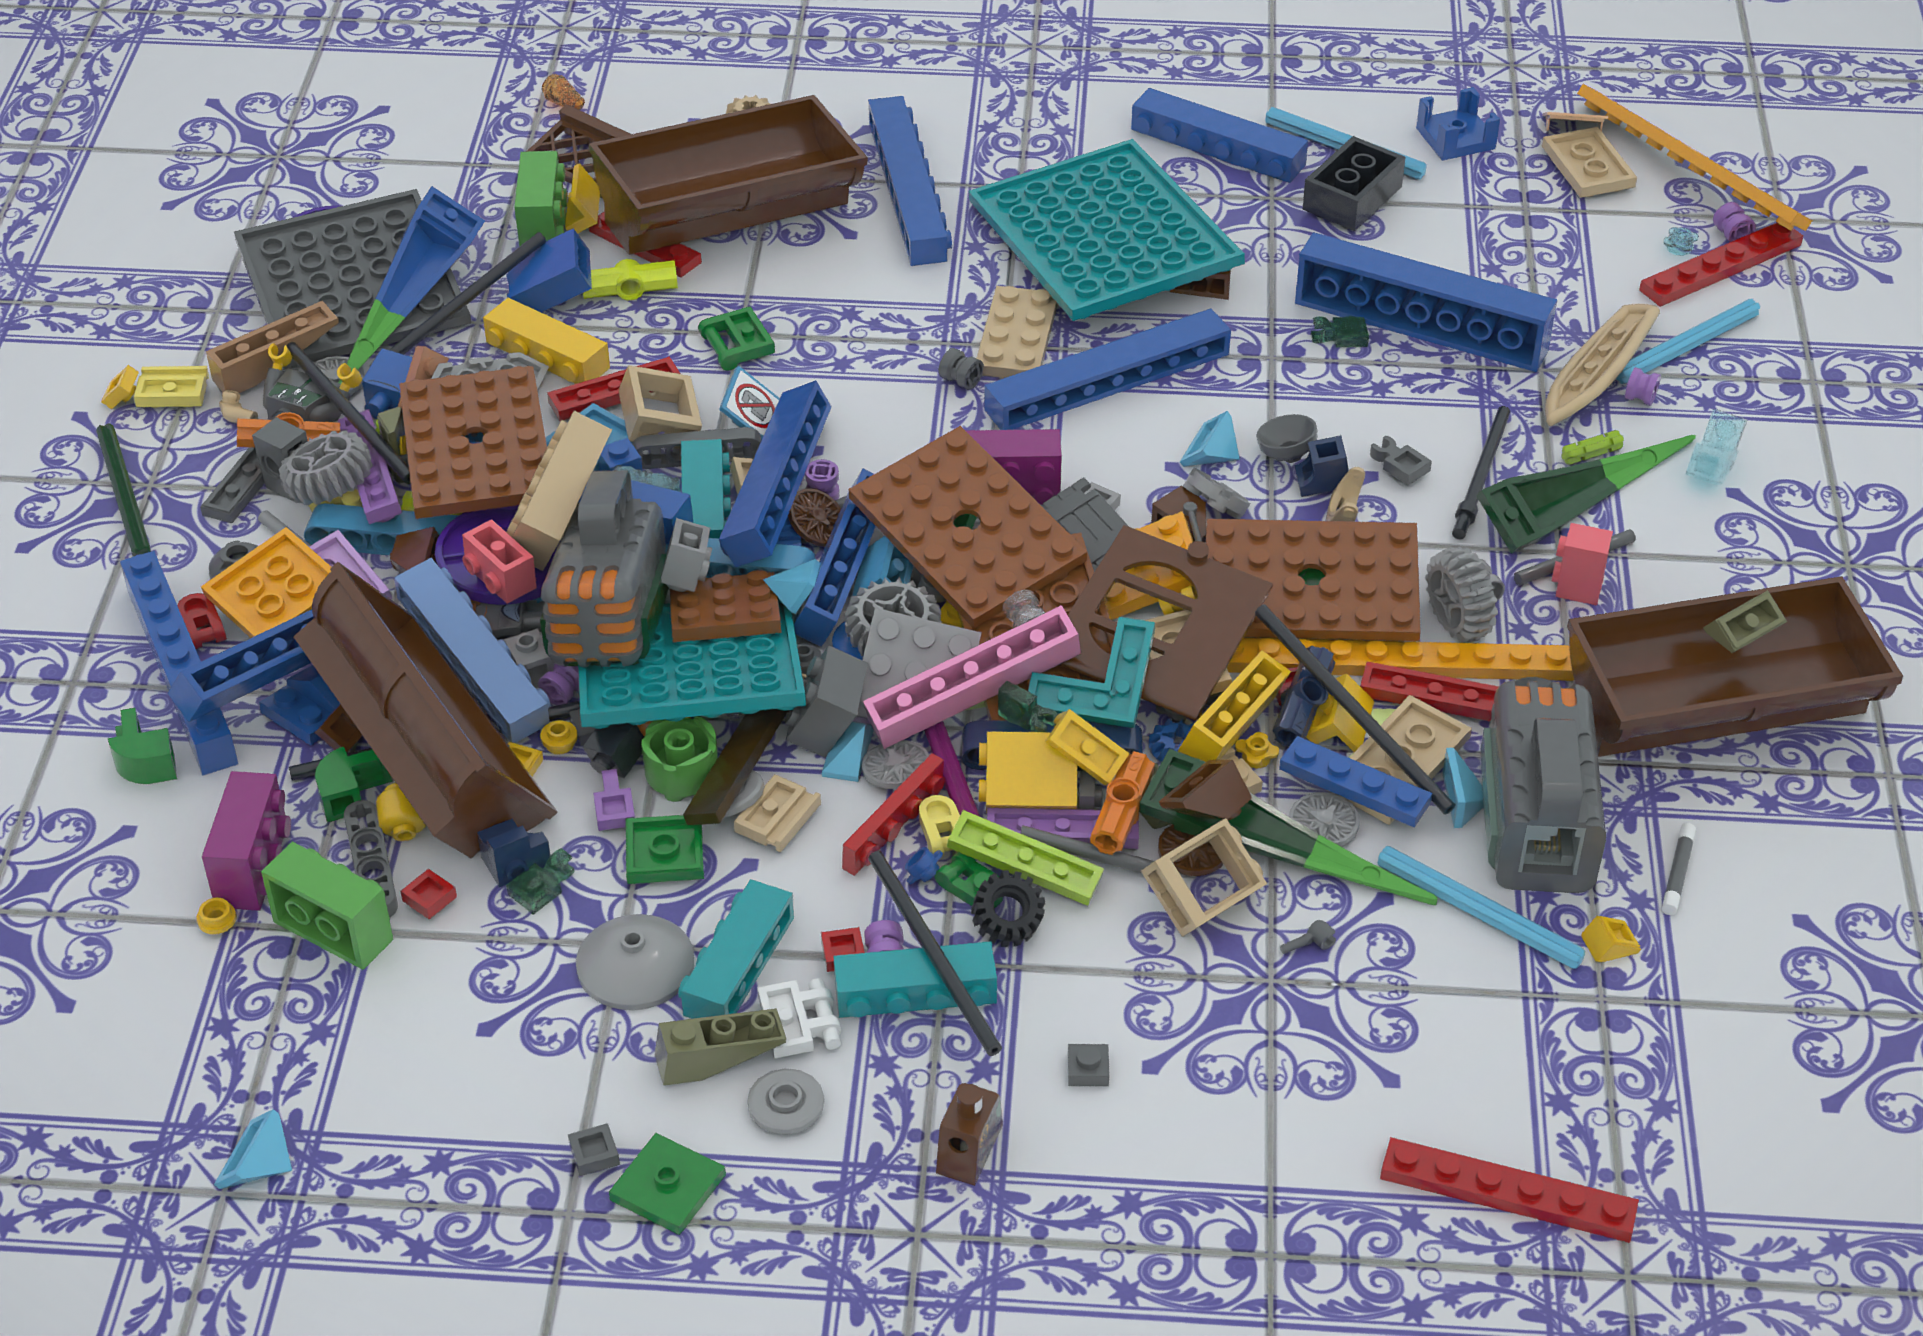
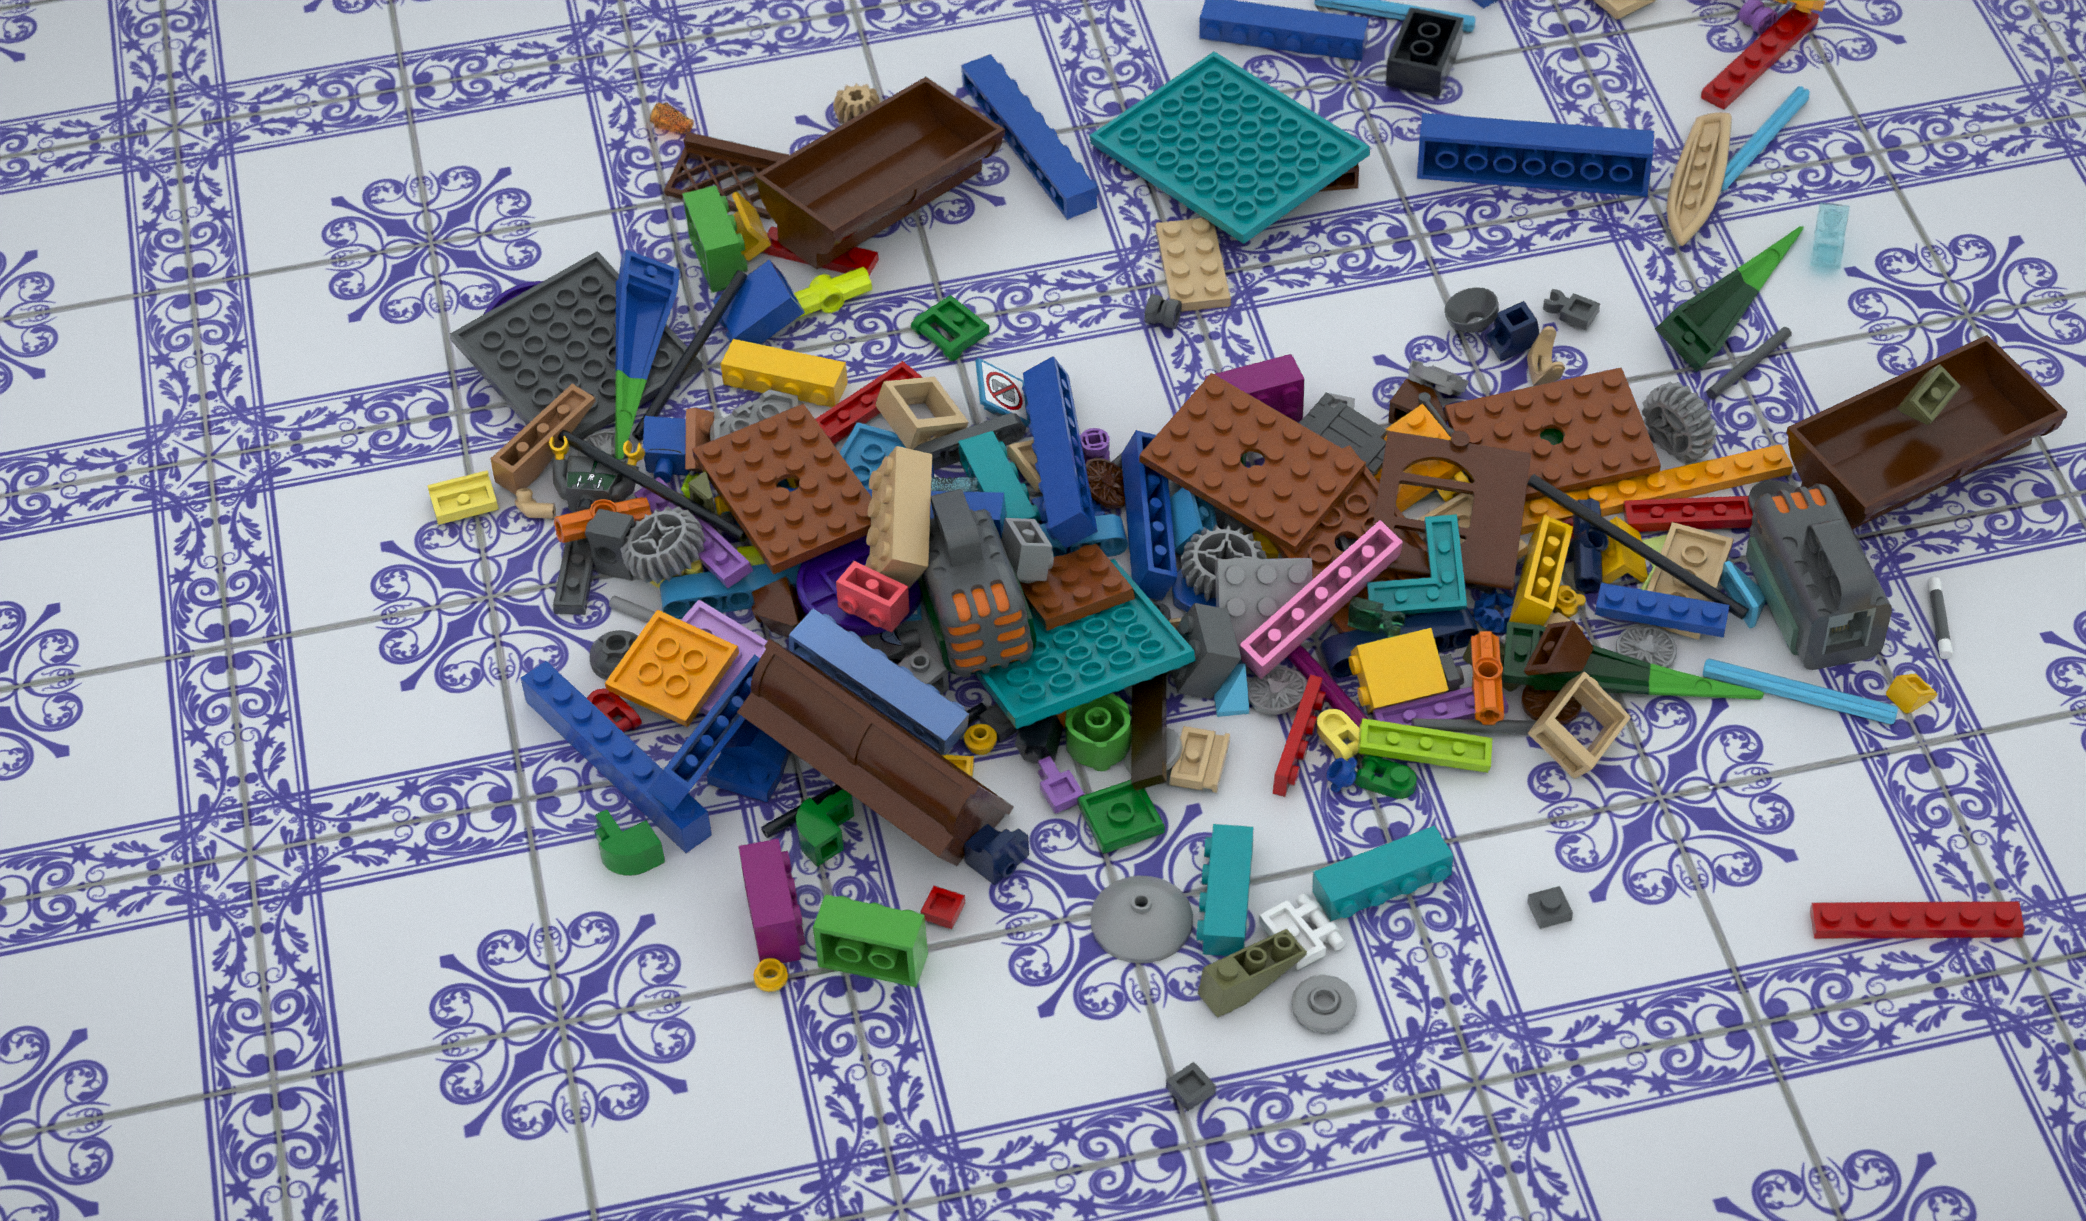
camera: 15 degrees left, 5 degrees up
(120, 387) = (416, 509): yellow plate -> none
(123, 490) = (472, 609): dark green axle -> none
(258, 1153) = (912, 1164): medium azure slope -> none
(339, 730) = (792, 781): reddish brown plate -> none
(374, 858) = (865, 865): dark grey beam -> none
(397, 814) = (883, 842): yellow head -> none
(540, 886) = (1030, 875): clear green plate -> none
(560, 684) = (962, 690): medium lavender wheel -> none
(667, 1183) = (1261, 1097): green plate -> none
(794, 584) = (1127, 551): medium azure slope -> none
(840, 943) = (1307, 860): red plate -> none
(883, 936) = (1341, 845): medium lavender wheel -> none
(935, 954) = (1395, 847): black piece -> none
(977, 1120) = (1487, 979): reddish brown torso -> none
(1017, 889) = (1443, 781): black tyre -> none
(1022, 607) = (1338, 531): clear wheel -> none
(1086, 746) = (1442, 637): yellow panel -> none
(1106, 370) = (1289, 282): blue brick -> none
(1213, 443) = (1407, 329): medium azure slope -> none
(1319, 933) = (1685, 747): dark grey hand -> none
(1345, 331) = (1473, 196): plate -> none
(1468, 509) = (1645, 340): black bar -> none
(1583, 563) = (1765, 369): coral brick -> none
(1592, 447) = (1723, 257): lime axle -> none
(1642, 386) = (1744, 191): medium lavender wheel -> none
(1680, 240) = (1718, 42): clear light blue plate -> none

